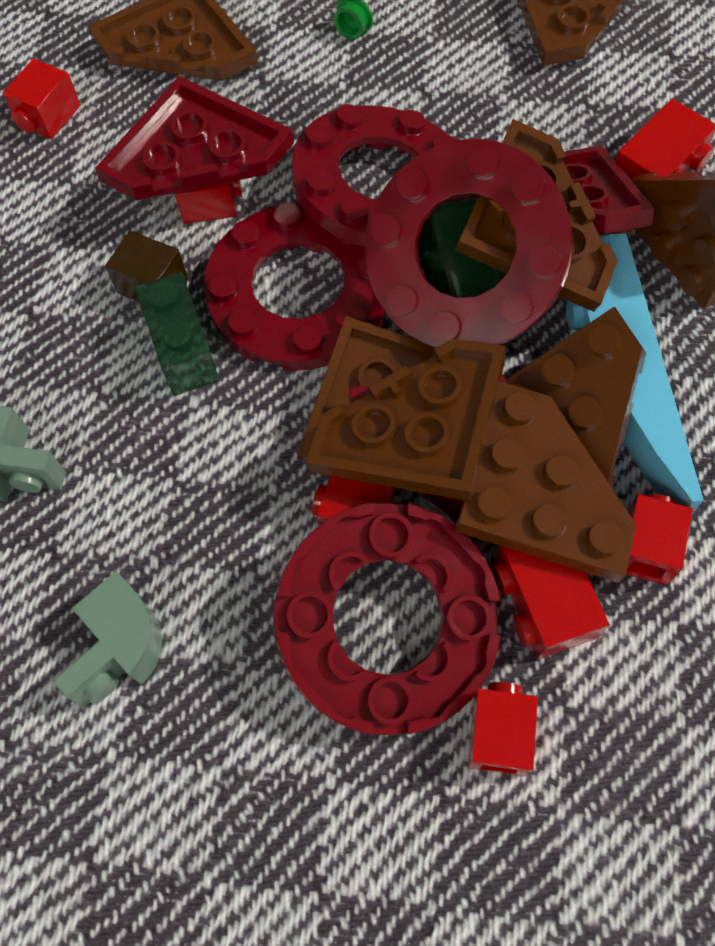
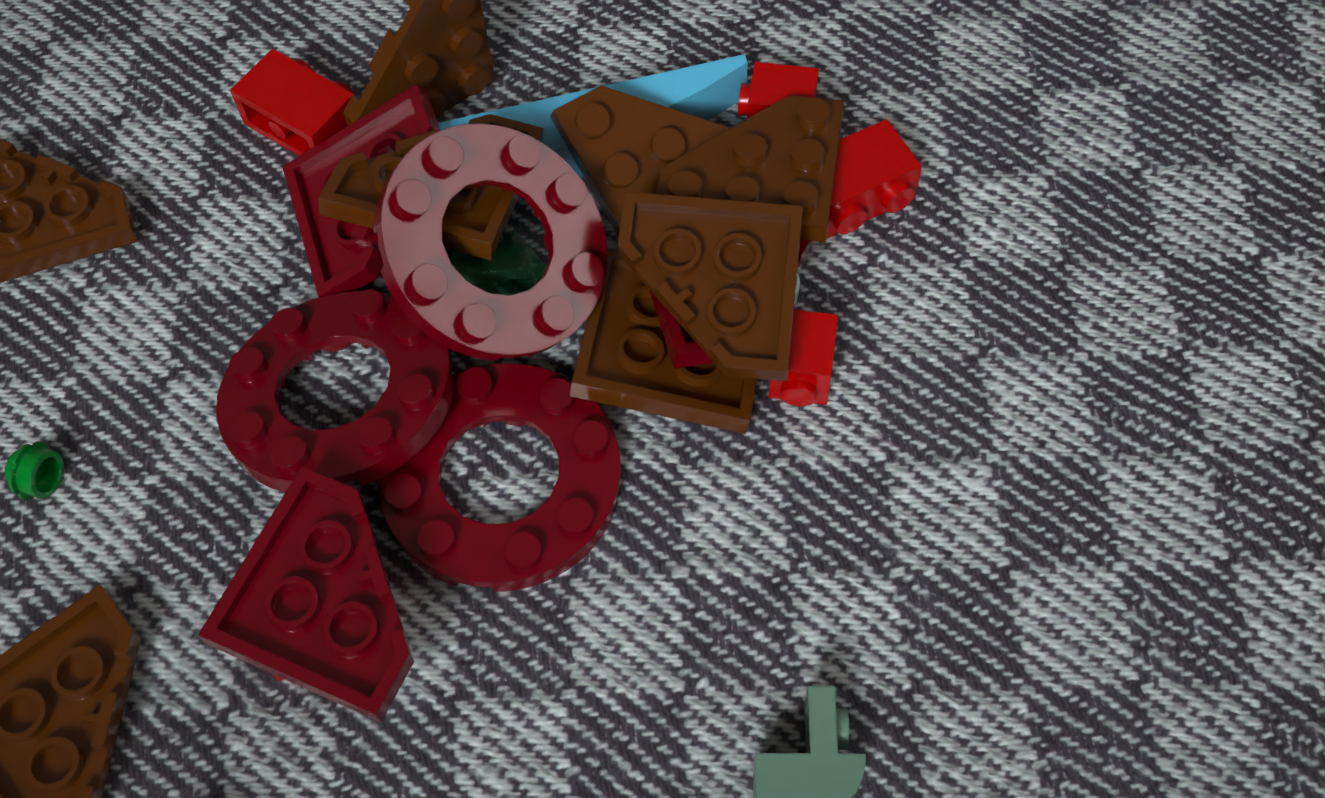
camera: 100 degrees left, 5 degrees down
(127, 642) = (1006, 558): sand green brick -> none
(142, 261) = (506, 651): dark brown brick -> none
(177, 334) = (604, 586): clear green brick -> none
(466, 633) = (946, 361): dark red plate -> none
(503, 730) = (1000, 207): red brick -> none

